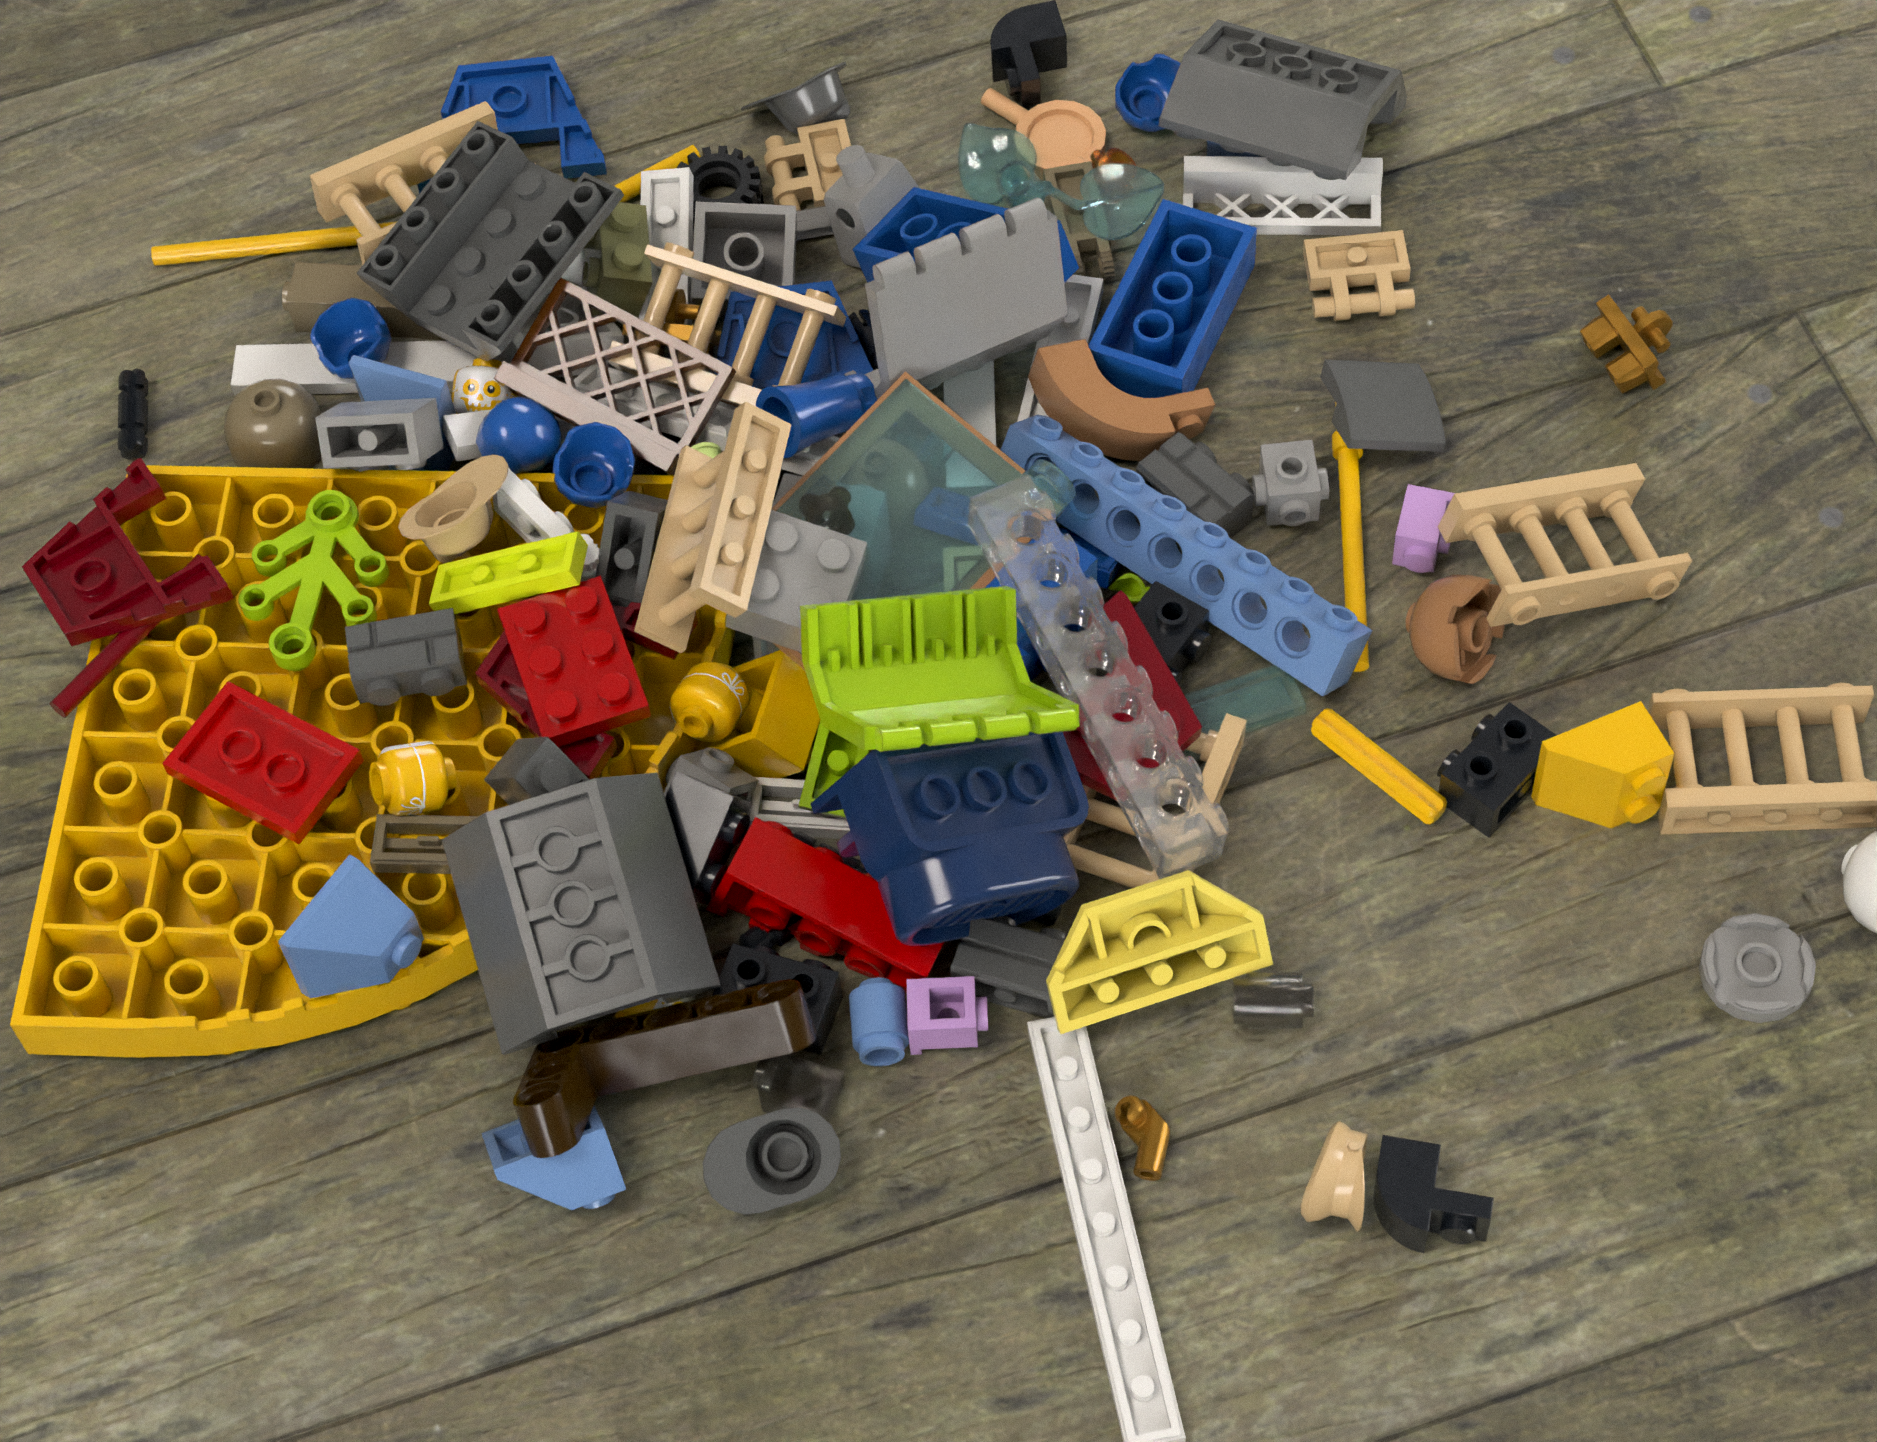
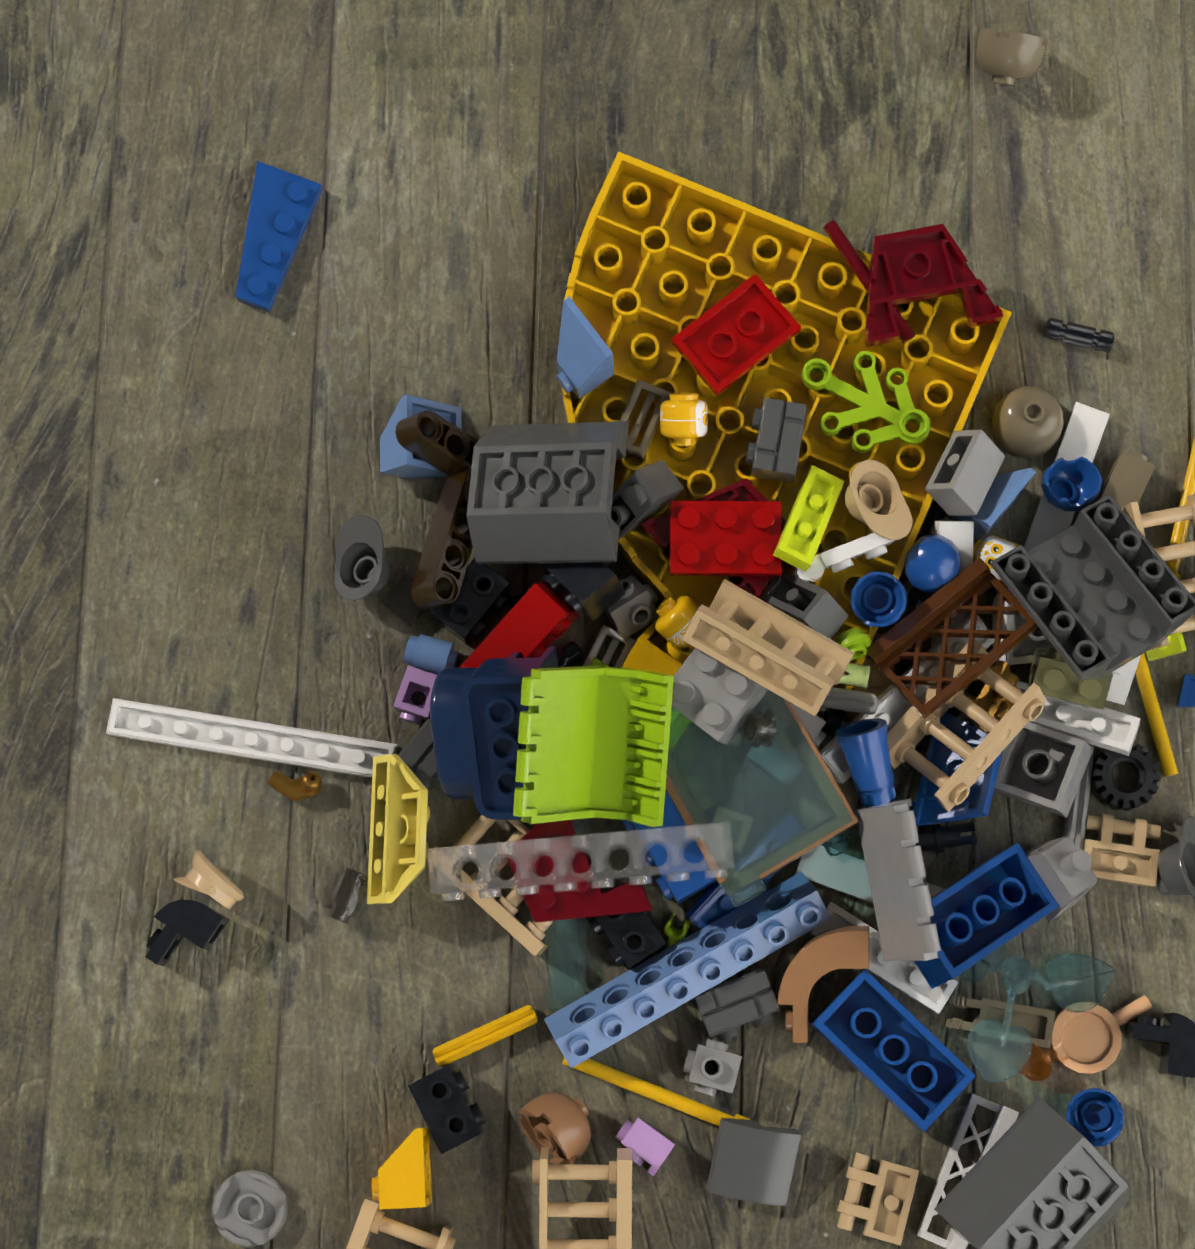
camera: 110 degrees right, 20 degrees up
(659, 477) = (855, 641): none -> lime plate

